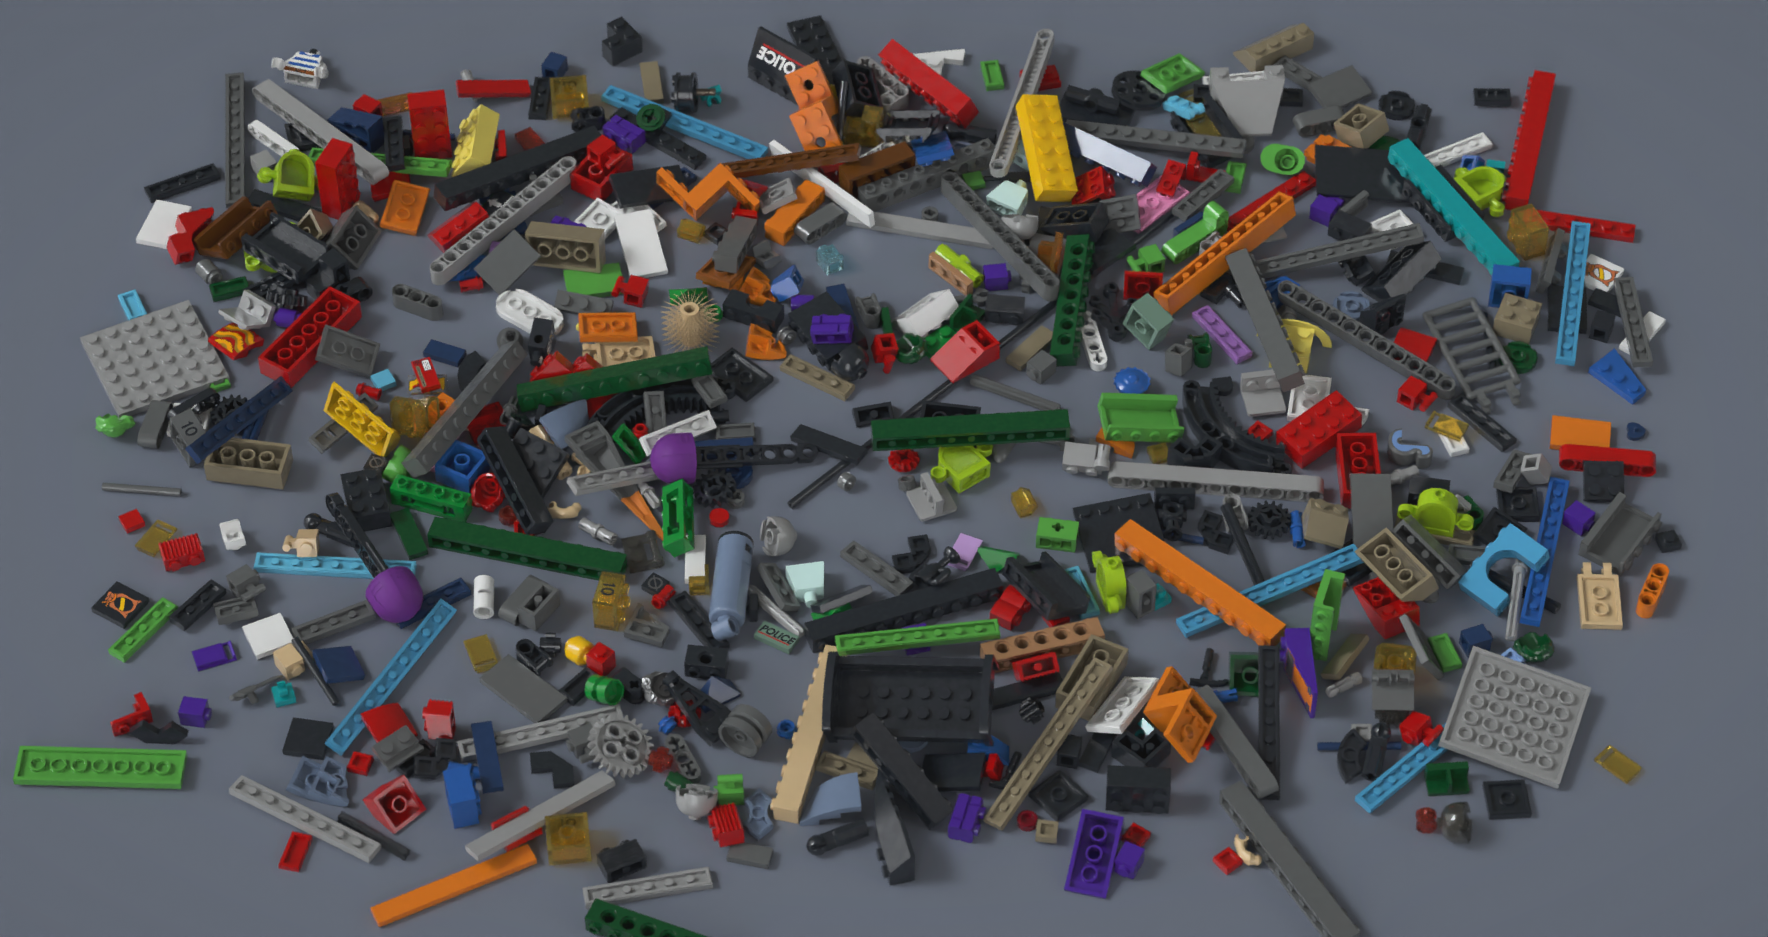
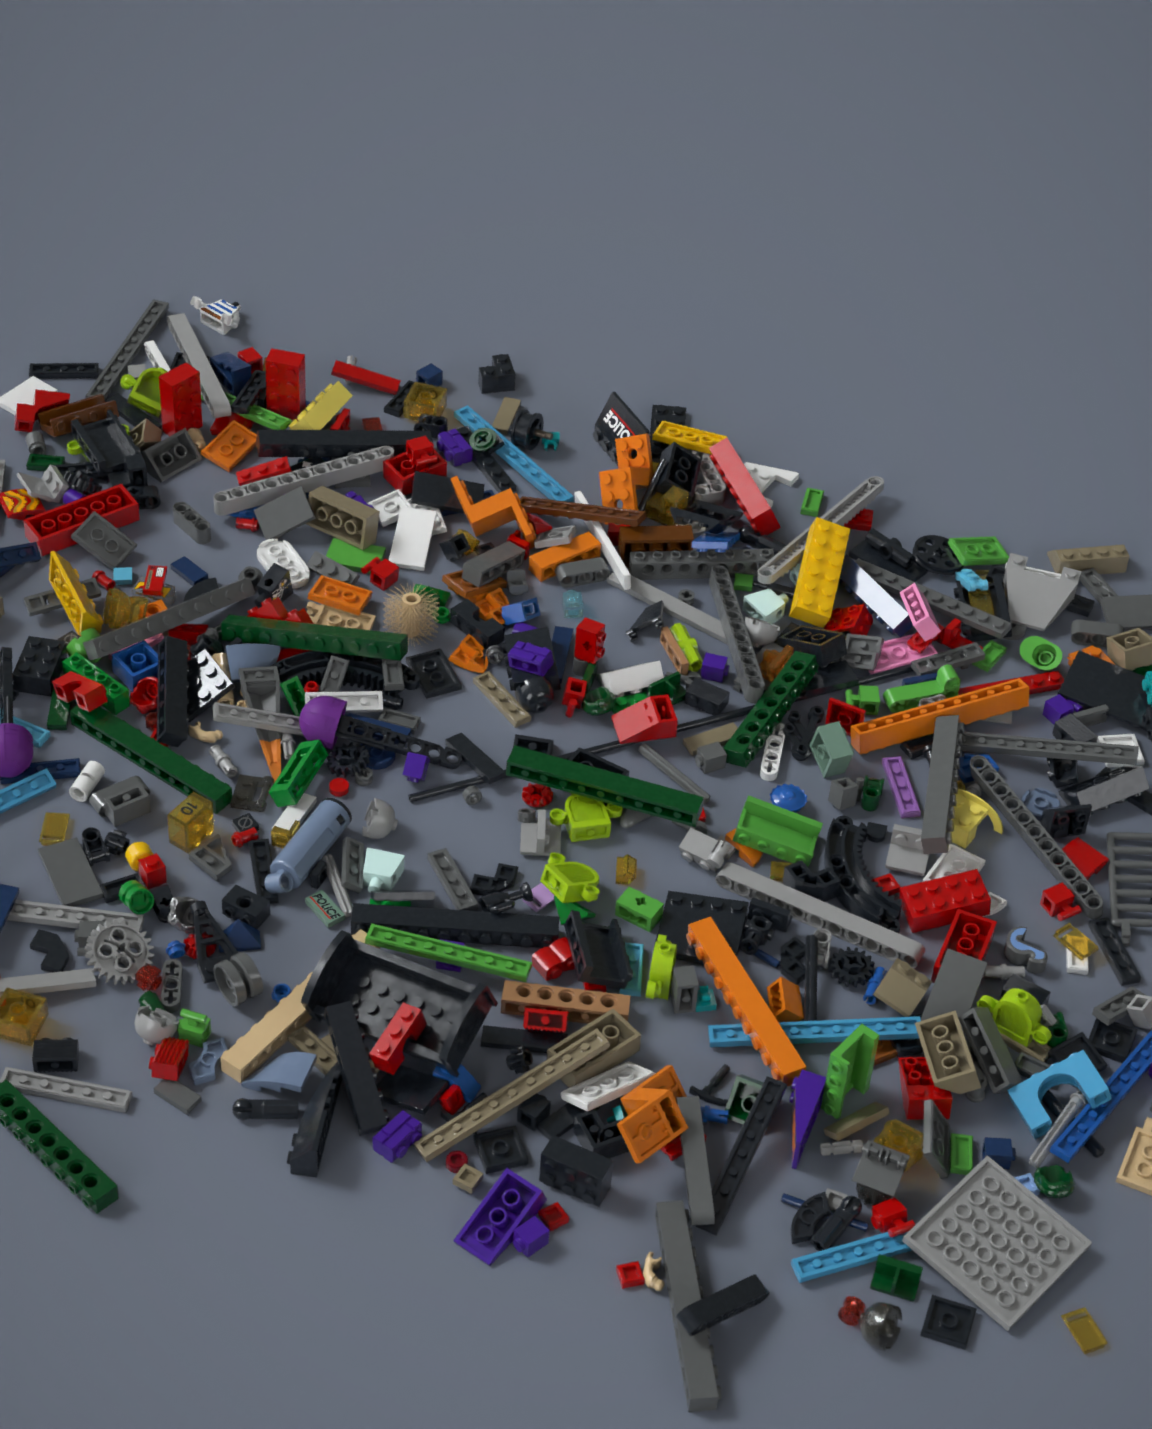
camera: 20 degrees right, 5 degrees down
(440, 511) = (85, 691): none -> red arch
(687, 238) = (455, 546): none -> black brick
(782, 473) = (416, 767): none -> dark purple brick
(846, 47) = (686, 437): none -> yellow tile
(877, 292) = (590, 640): none -> red brick
(907, 246) = (650, 615): none -> black flag
(926, 740) = (388, 1050): none -> red arch
(985, 530) = (570, 880): none -> lime piece
(1159, 157) = (920, 612): none -> bright pink brick
(1229, 570) = (785, 1000): none -> orange brick
(1323, 855) = (722, 1305): none -> black beam

